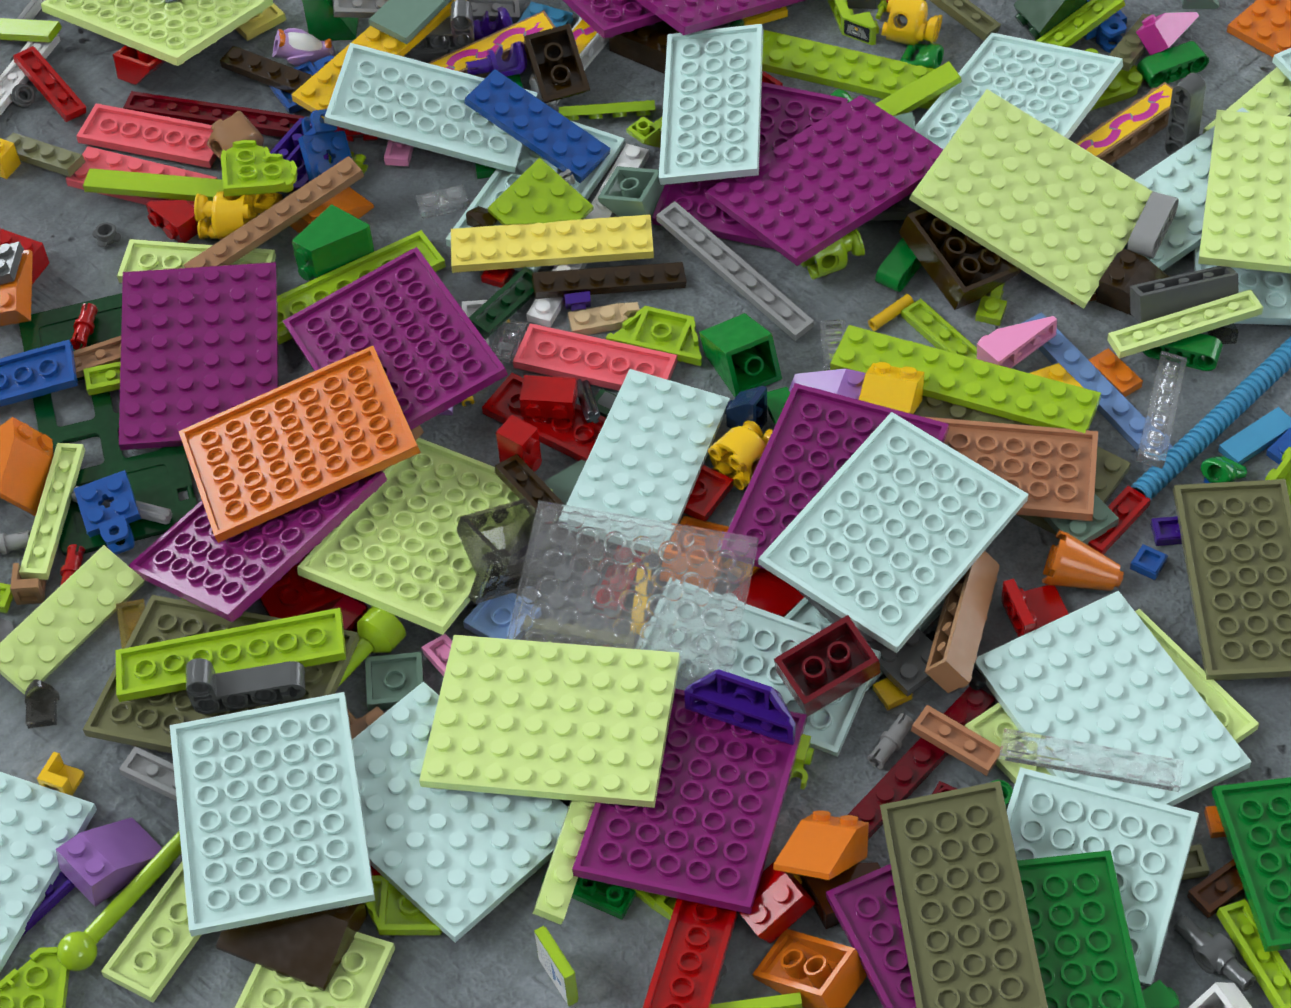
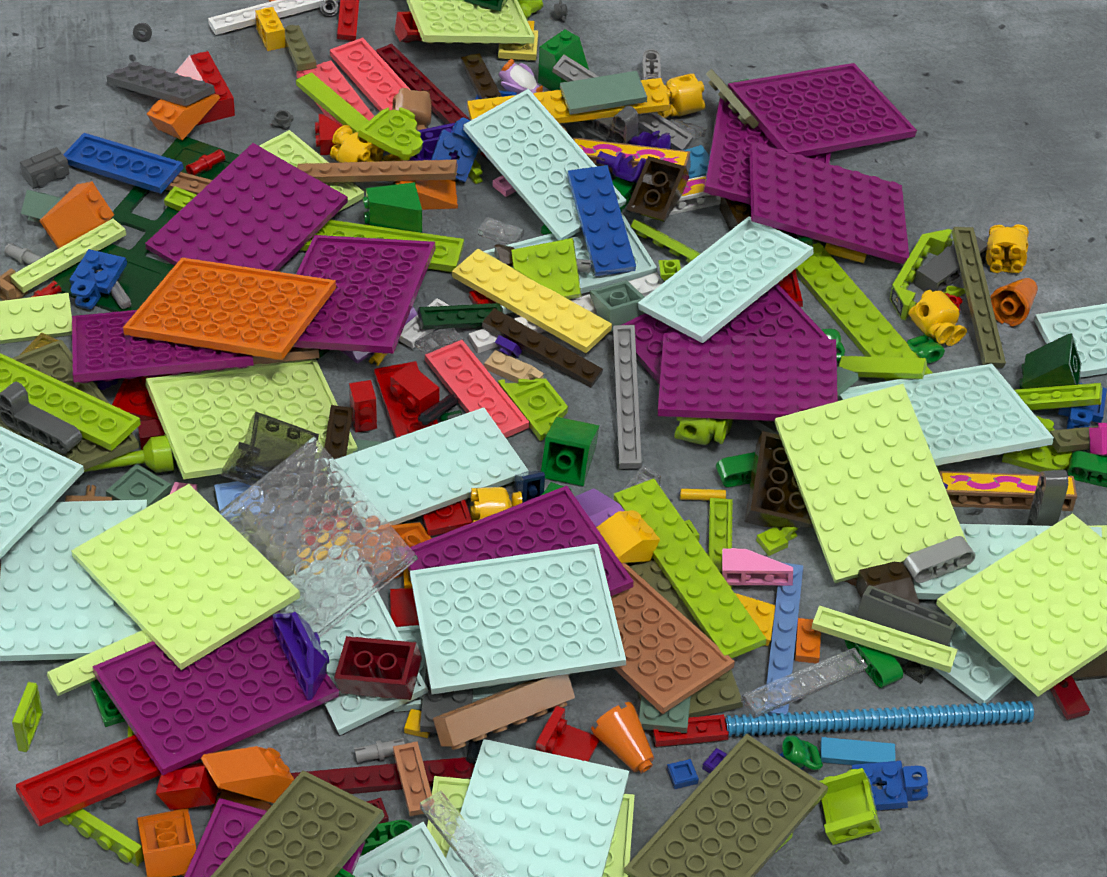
camera: 35 degrees right, 5 degrees down
(803, 757) = (309, 718): lime plate -> none

